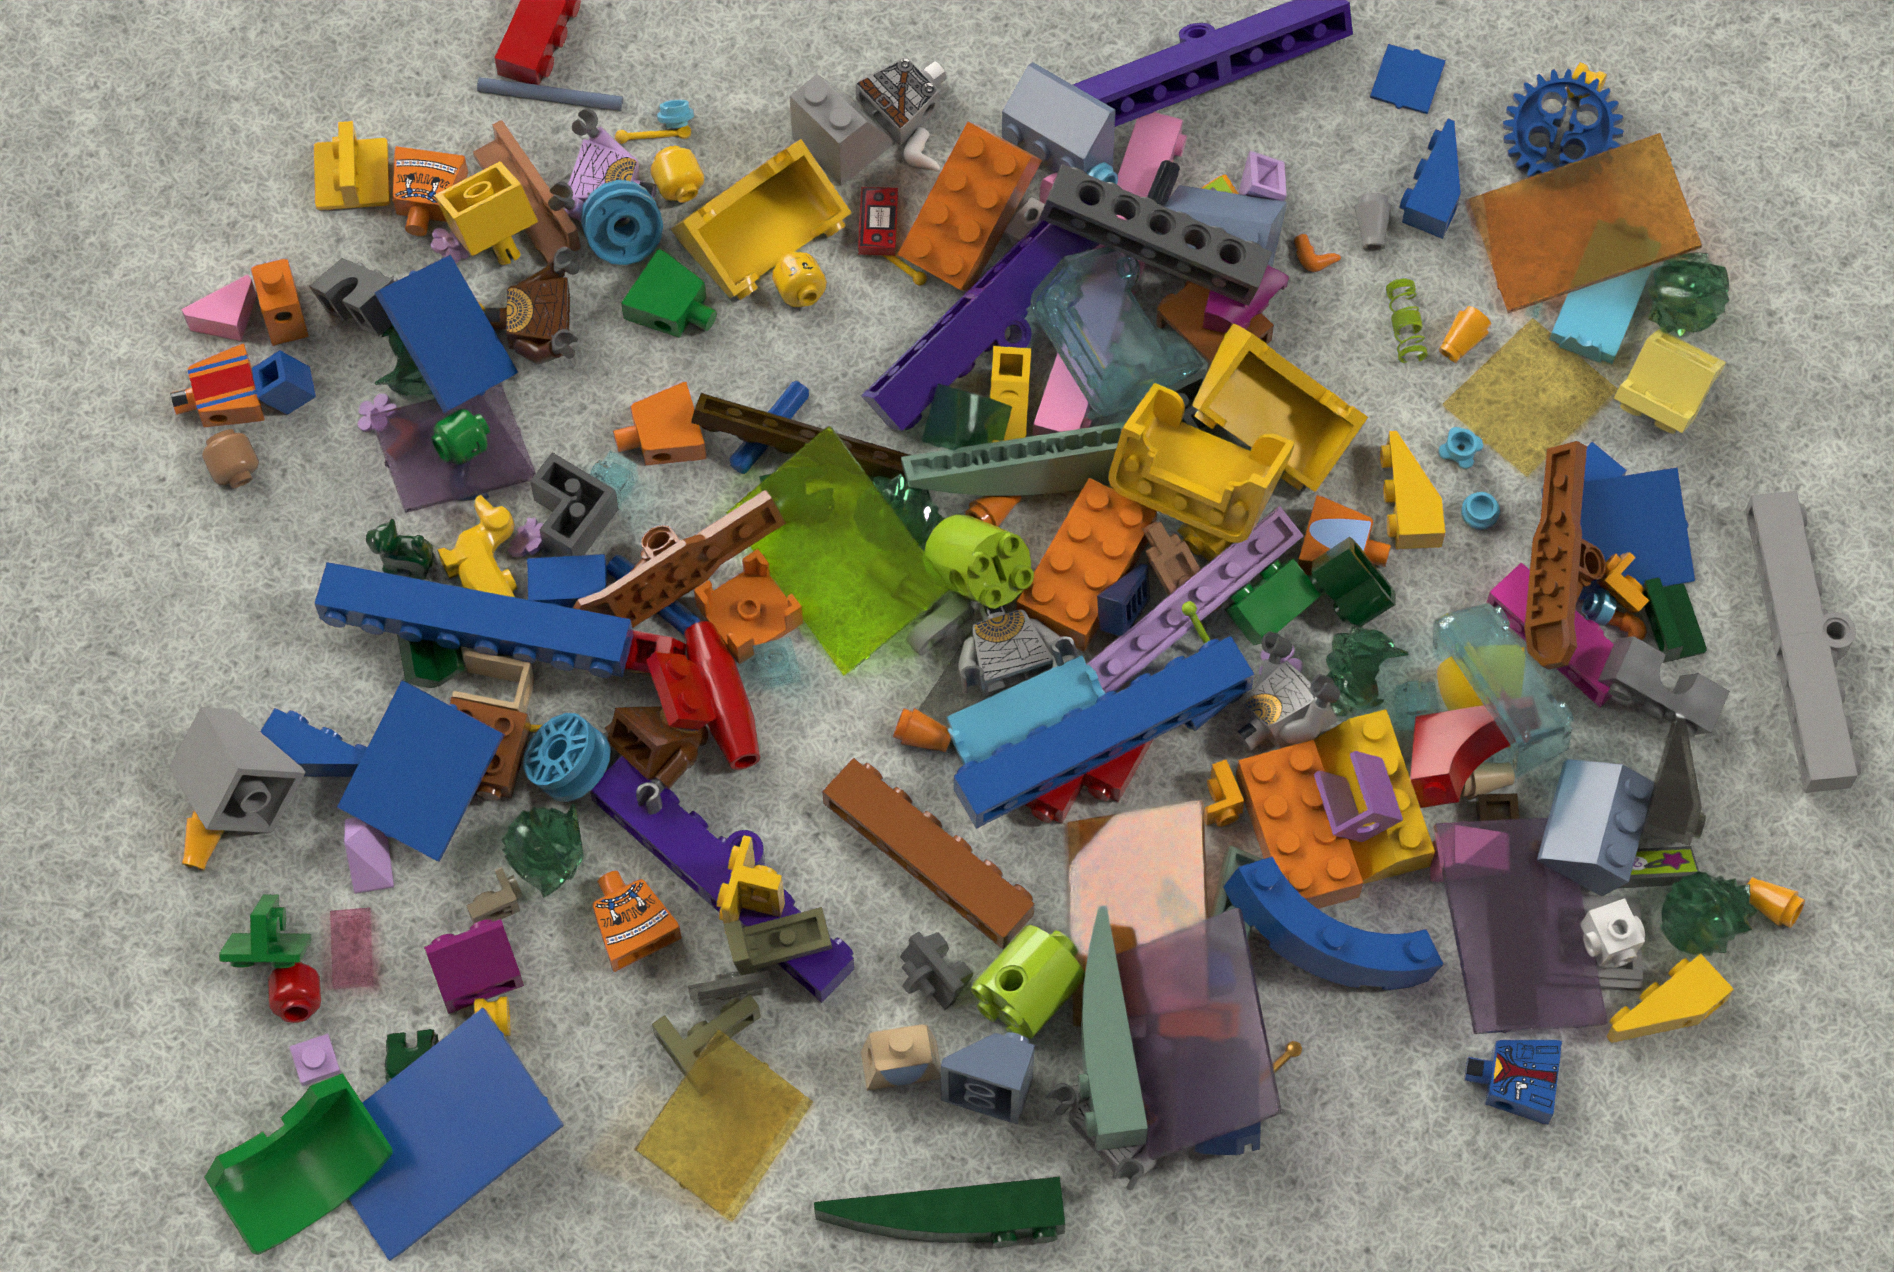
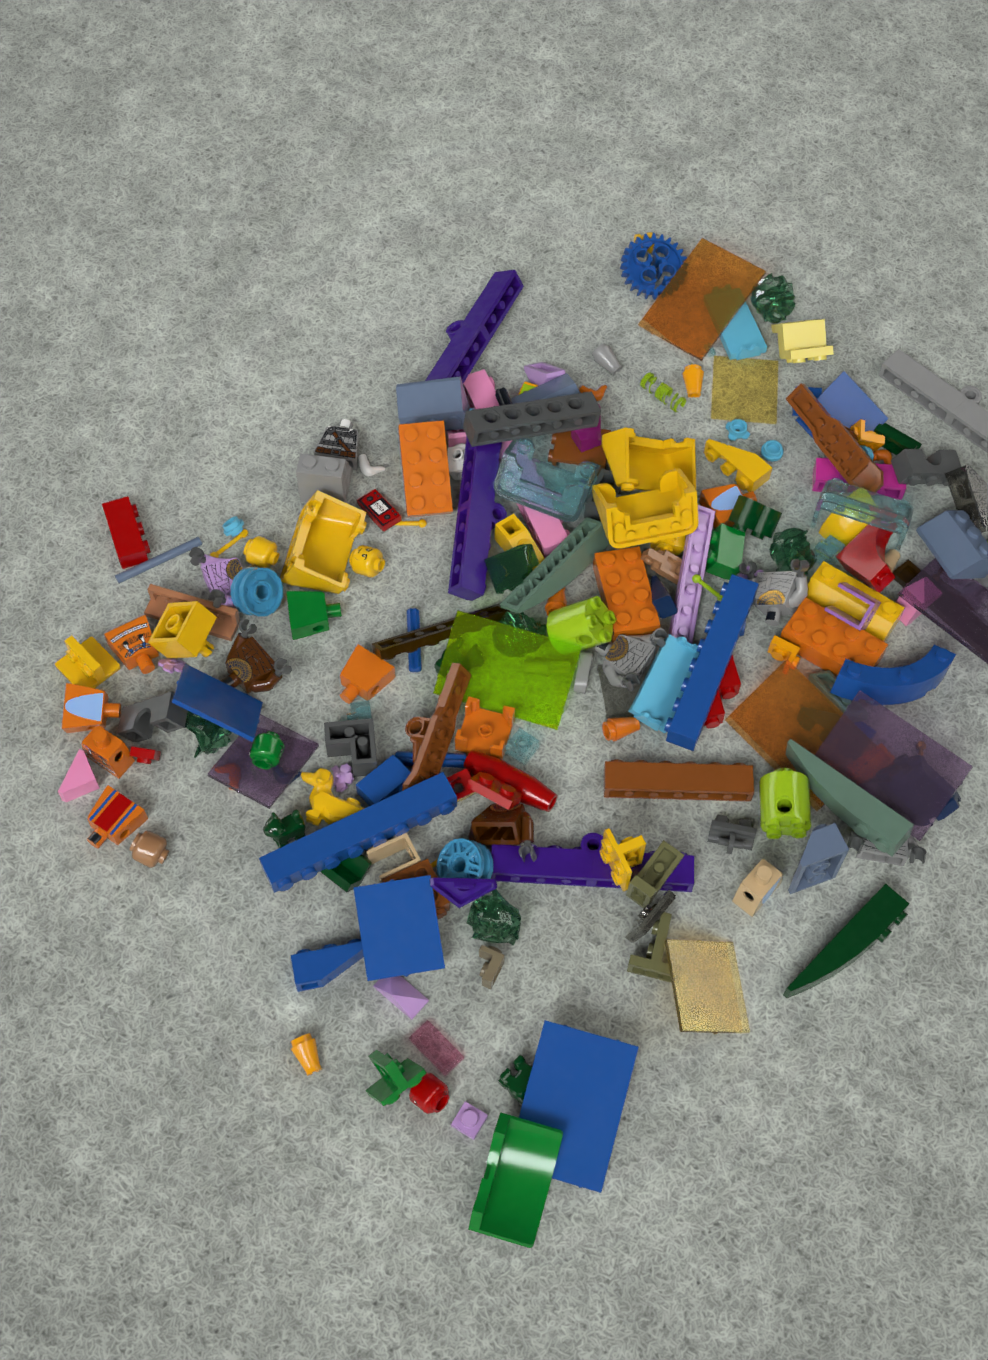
camera: 40 degrees left, 5 degrees down
(234, 773) = (298, 1004): light grey slope -> none
(283, 382) = (146, 790): blue brick -> none
(300, 229) = (86, 708): none -> orange torso
(321, 337) = (145, 755): none -> red plate
(381, 403) = (202, 774): lavender plant -> none
(473, 964) = (513, 1005): magenta slope -> none
(498, 1010) = (535, 1025): yellow wheel -> none
(529, 782) = (462, 890): none -> dark purple tile
(632, 920) = (567, 922): orange torso -> none
(1407, 78) = (562, 291): blue piece -> none
(1437, 191) = (626, 328): blue slope -> none

